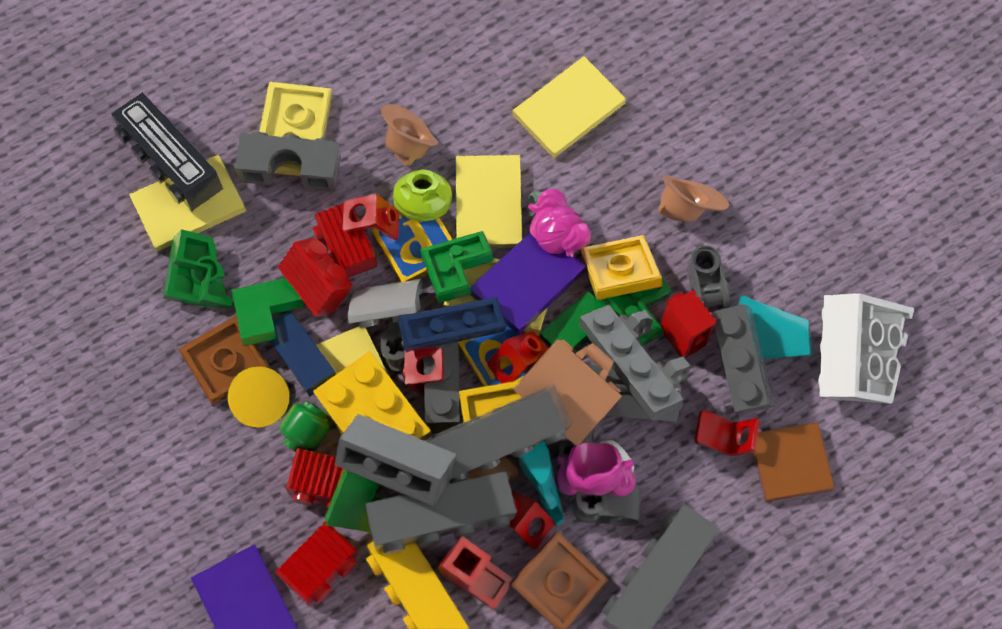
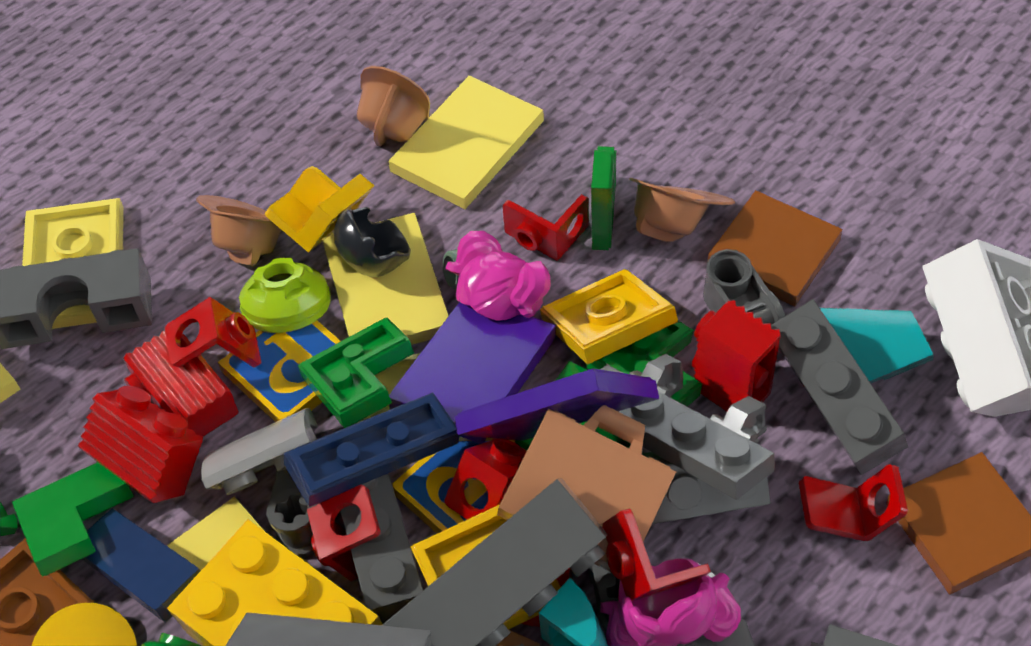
camera: 10 degrees left, 15 degrees down
(456, 140) = (313, 205): none -> yellow panel
(485, 176) = (369, 246): none -> black hair
(522, 75) = (391, 104): none -> nougat piece
(566, 332) = (574, 396): none -> dark purple tile
(578, 444) = (631, 563): none -> red bracket
(593, 195) = (542, 235): none -> red bracket
(644, 179) = (603, 197): none -> green tile
(745, 245) = (781, 244): none -> dark orange tile

